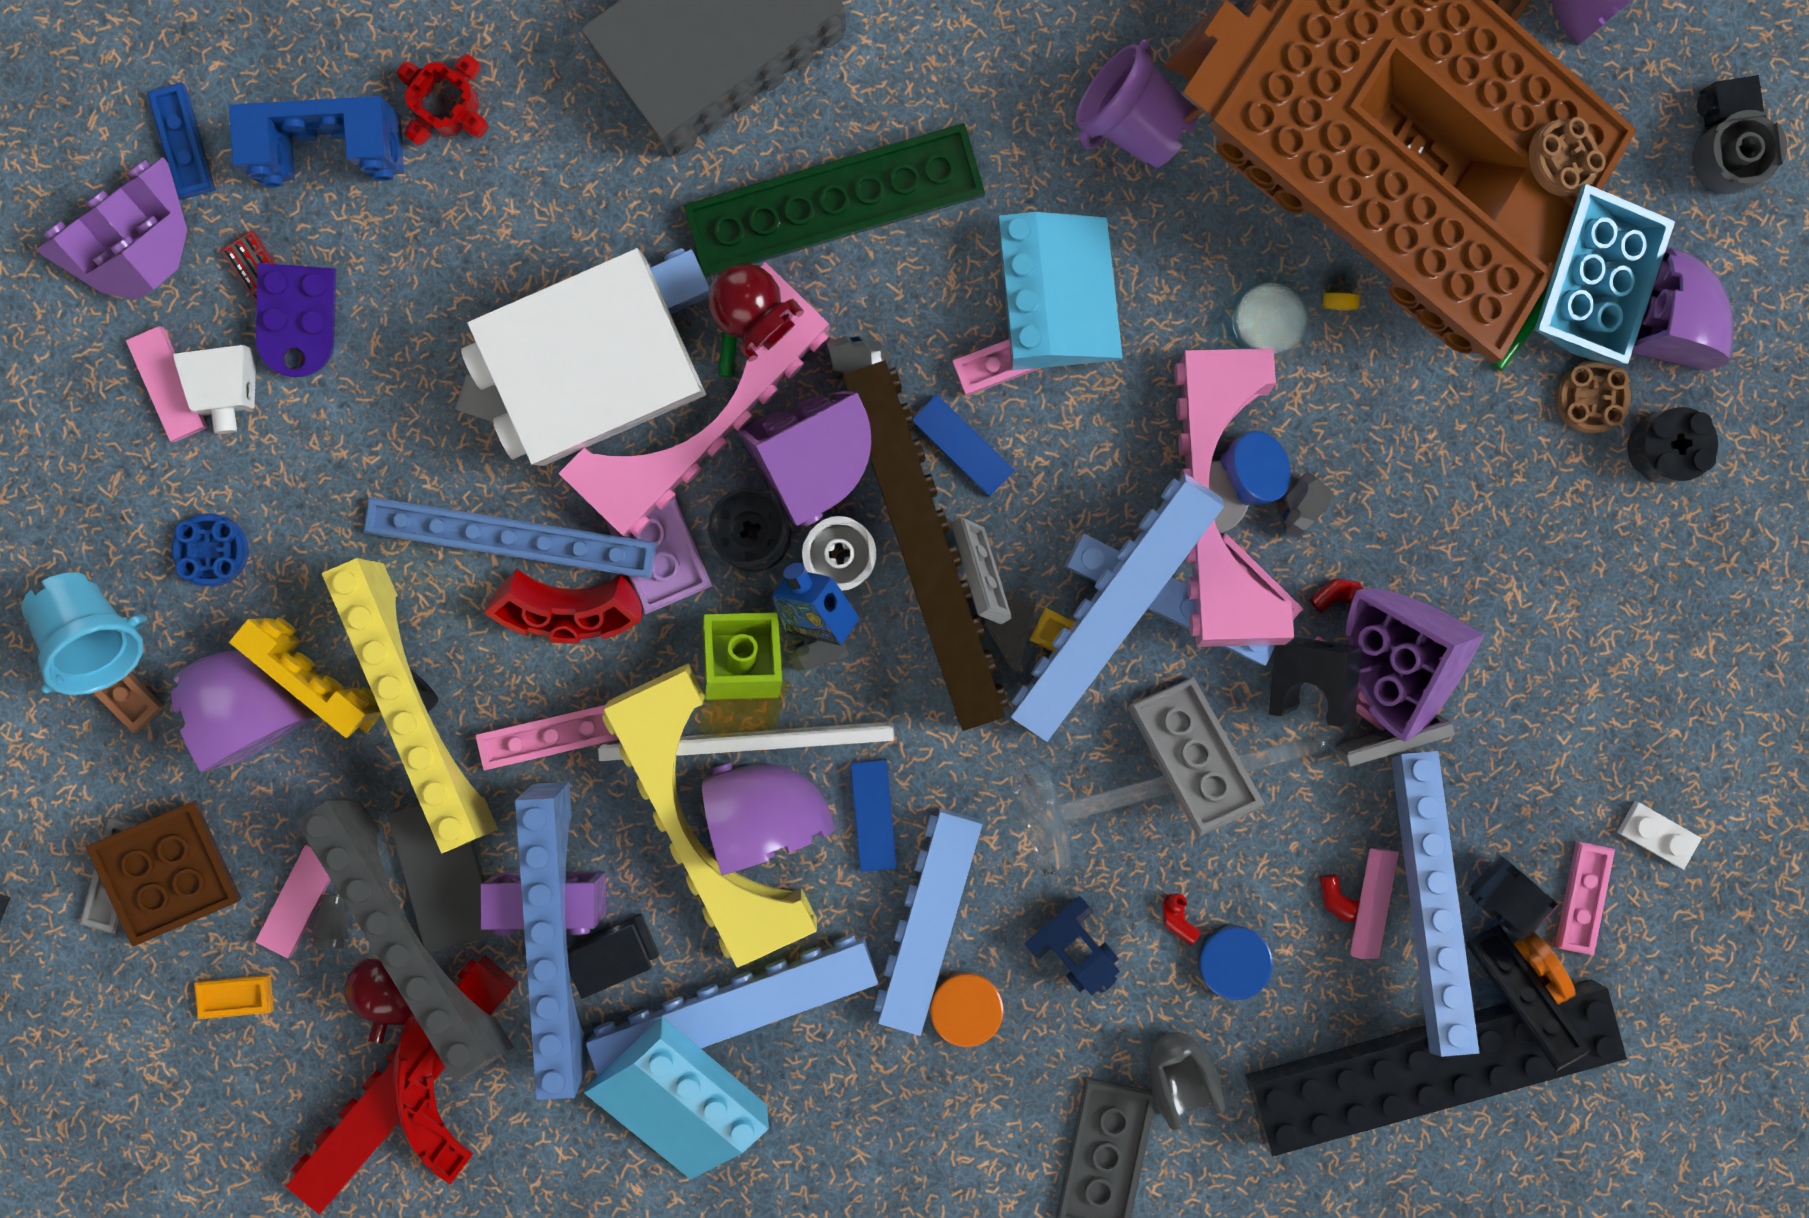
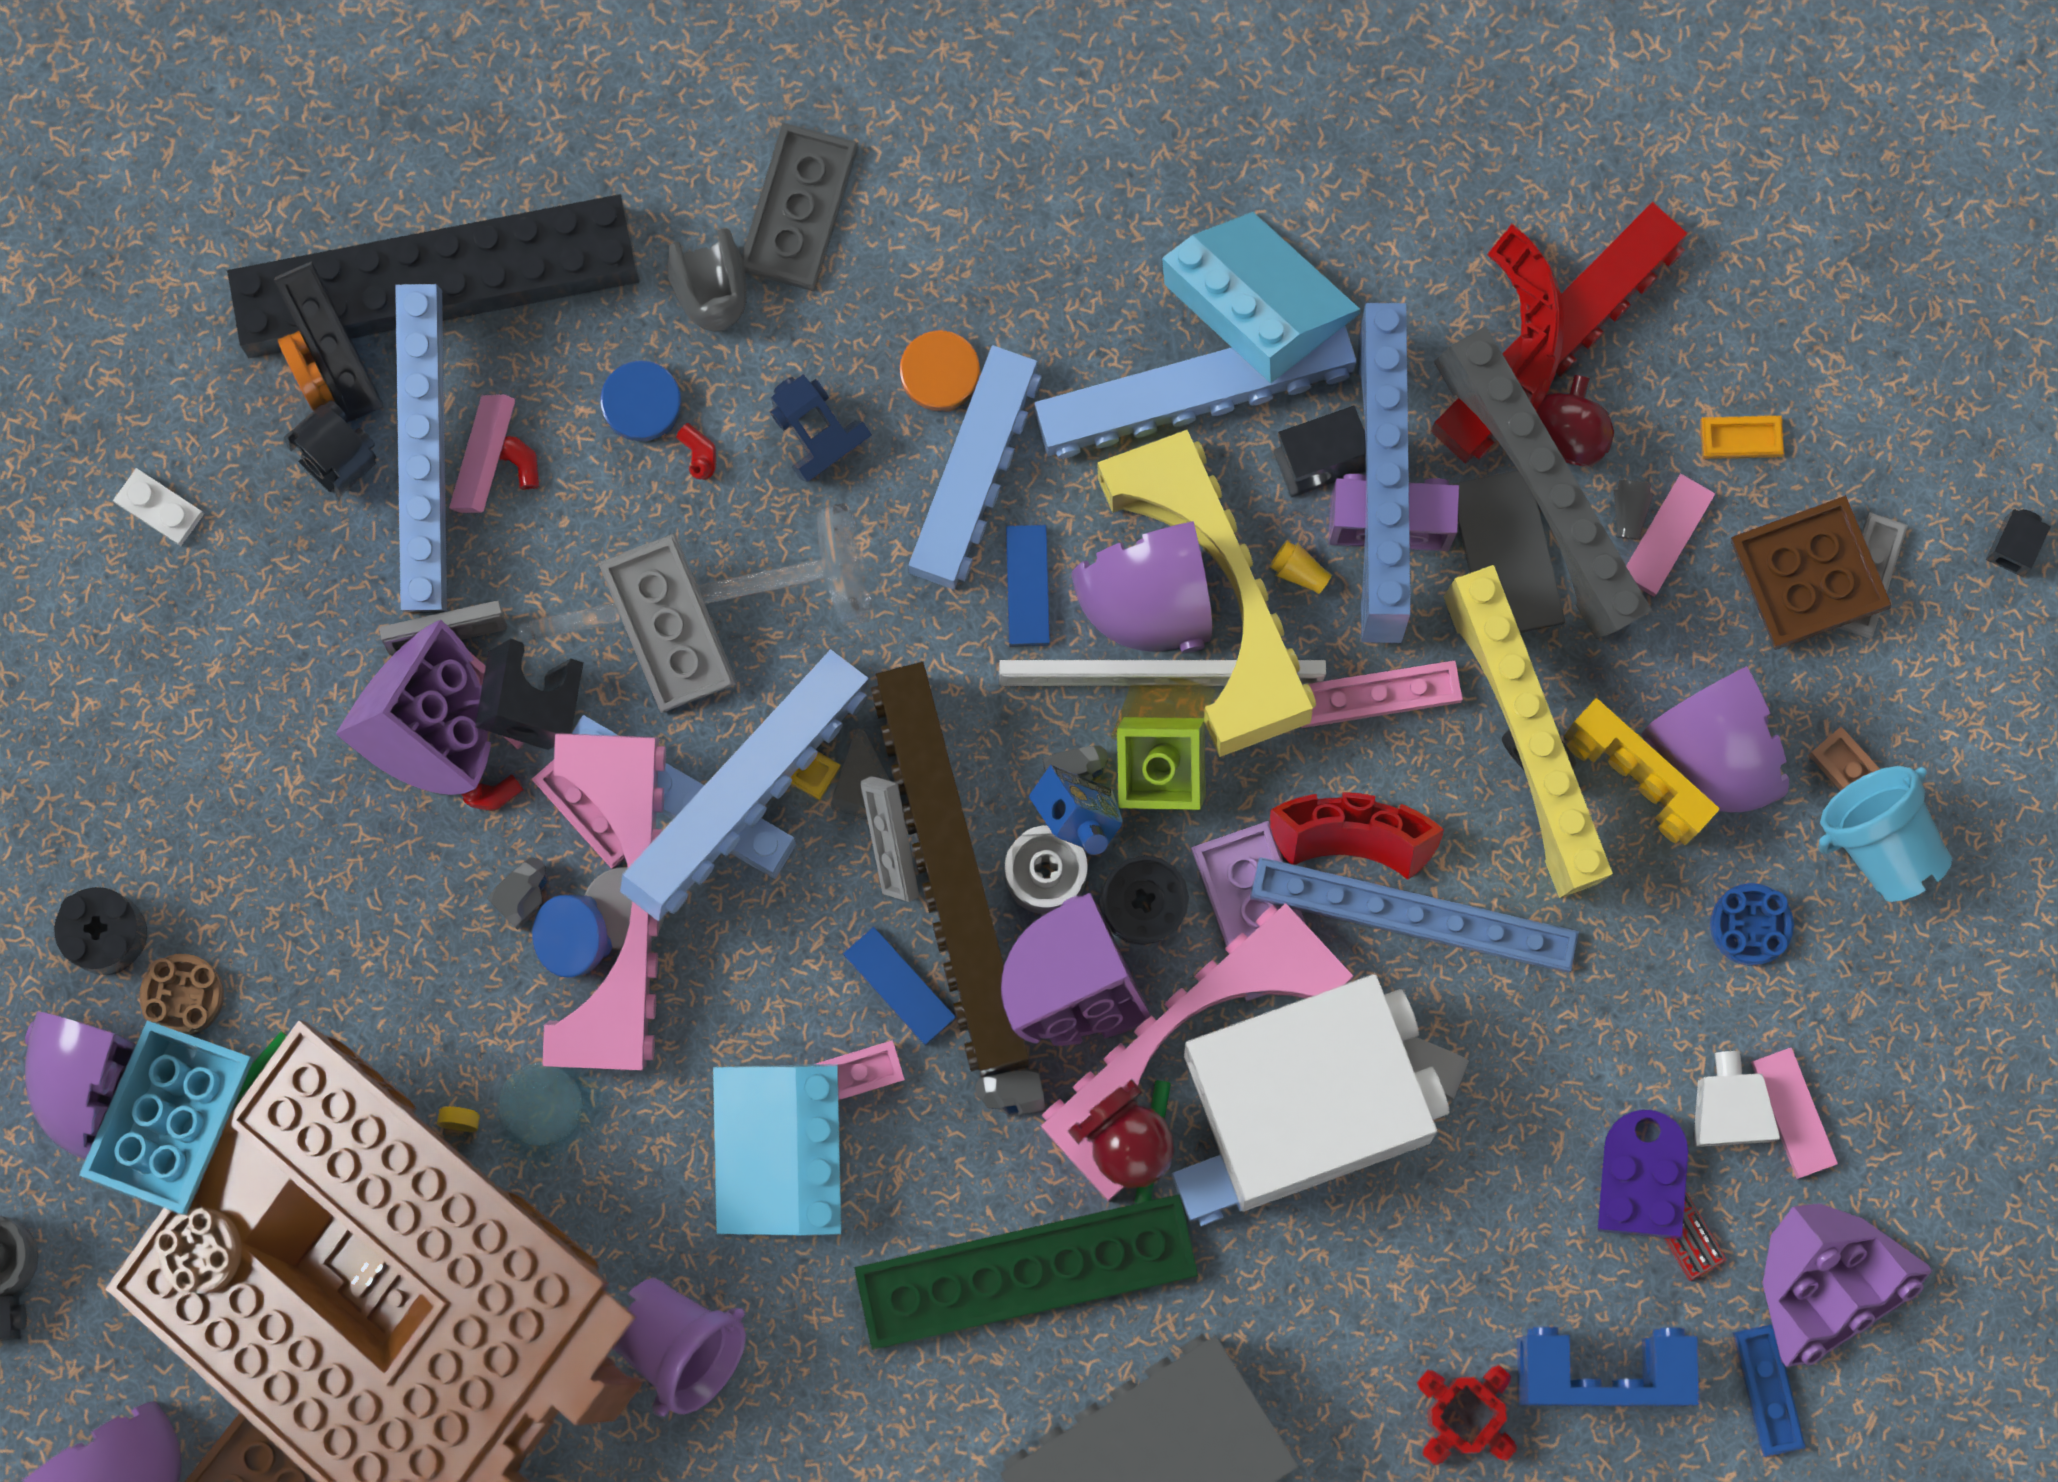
camera: 175 degrees left, 10 degrees down
(628, 847) = (1299, 567): none -> yellow cone
(1584, 898) = (247, 445): bright pink tile -> none

